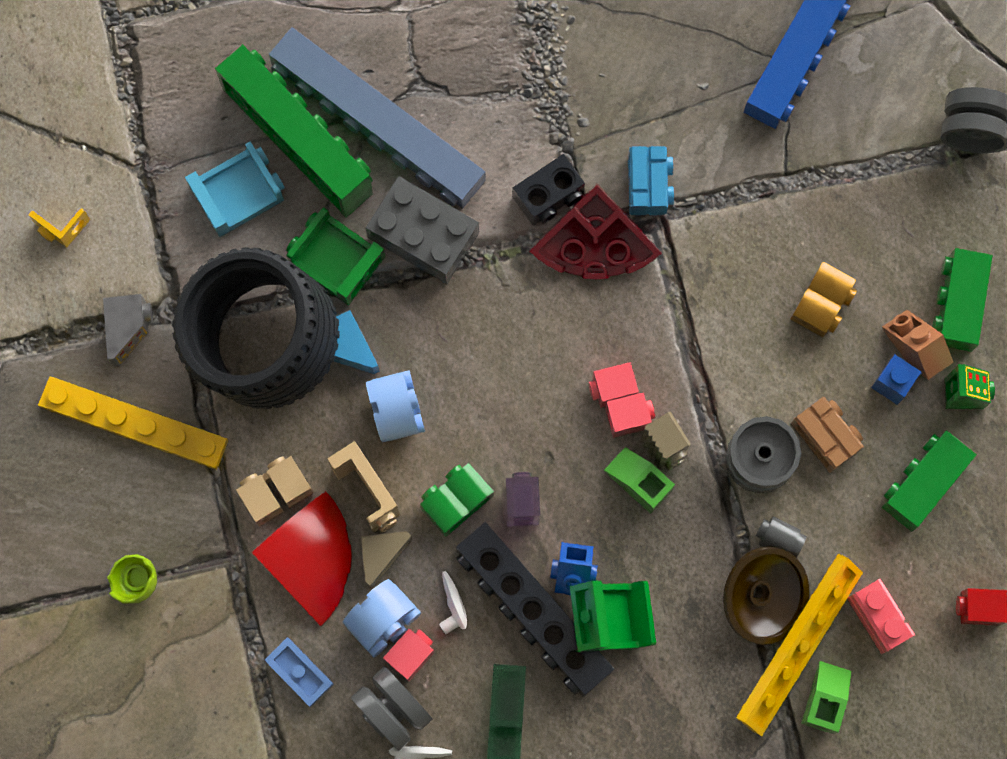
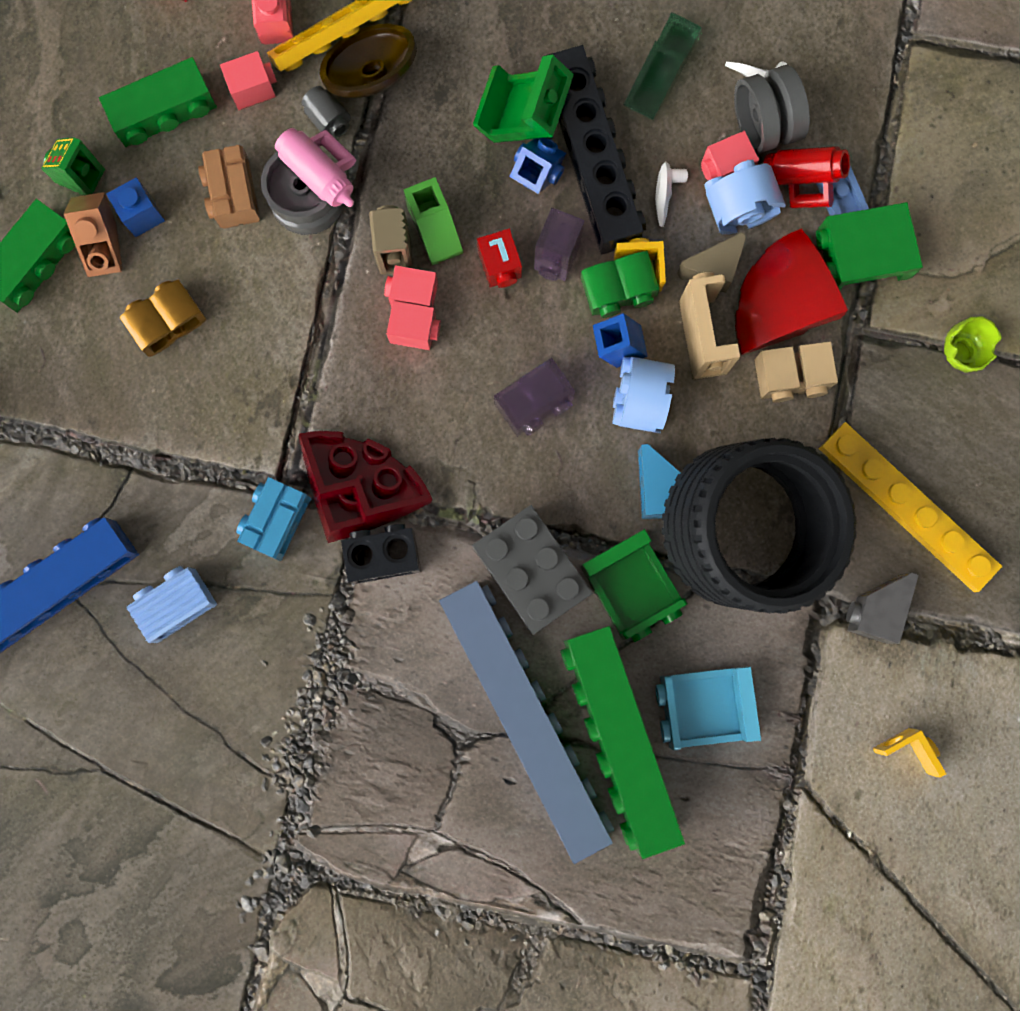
camera: 155 degrees left, 5 degrees up
(254, 628) = (870, 245): none -> green panel
(337, 671) = (808, 167): none -> red piece
(434, 445) = (619, 339): none -> blue brick
(451, 538) = (655, 252): none -> yellow bracket
(484, 369) = (535, 398): none -> clear purple brick
(568, 474) = (499, 258): none -> red brick
(694, 82) = (171, 604): none -> light blue brick
(754, 461) = (315, 167): none -> bright pink piece
(862, 536) = (249, 80): none -> coral brick

